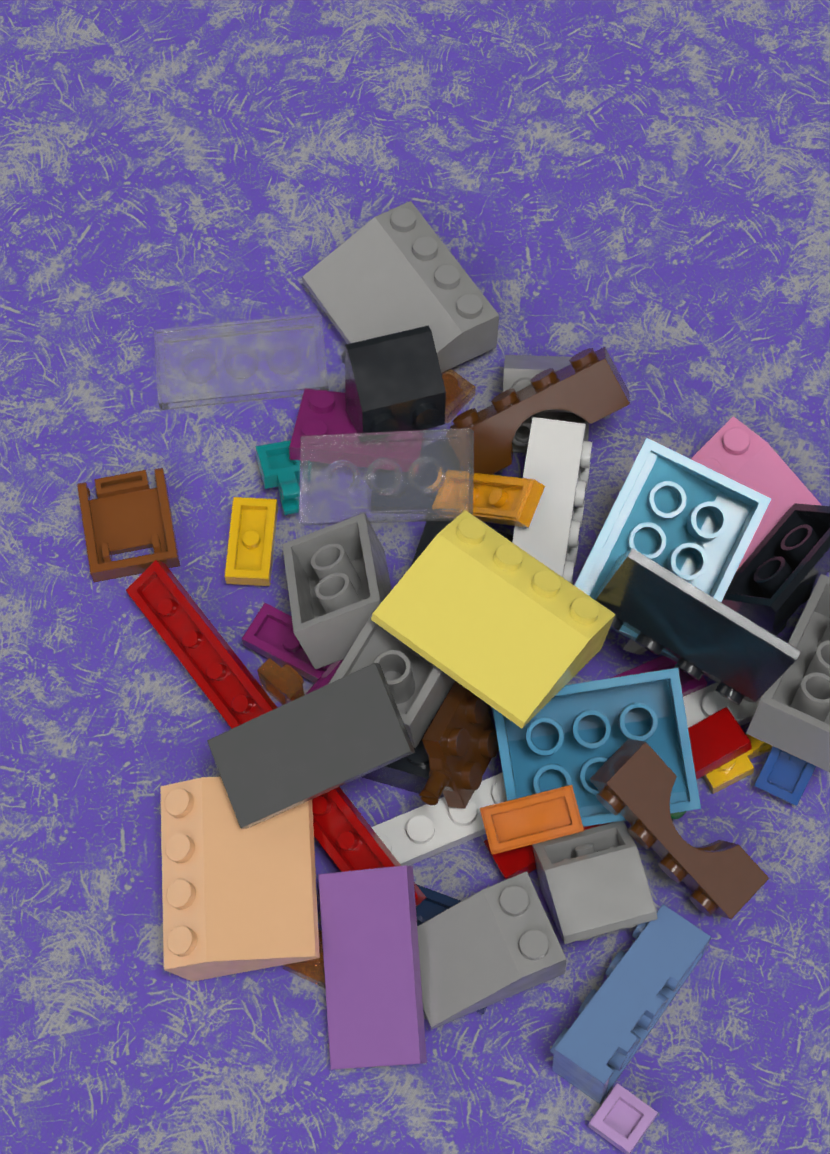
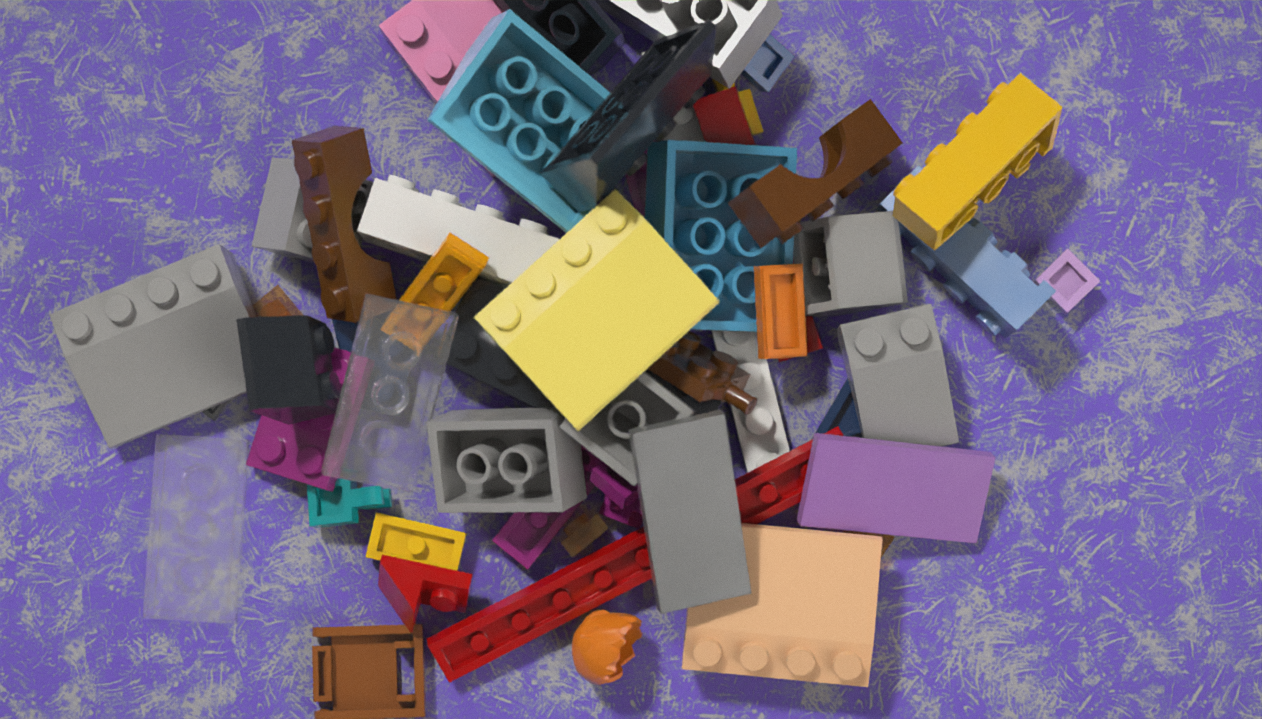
camera: 85 degrees left, 20 degrees up
(175, 717) = (604, 645): none -> orange hair
(213, 546) = (414, 583): none -> red slope
(726, 985) = (977, 161): none -> yellow wedge

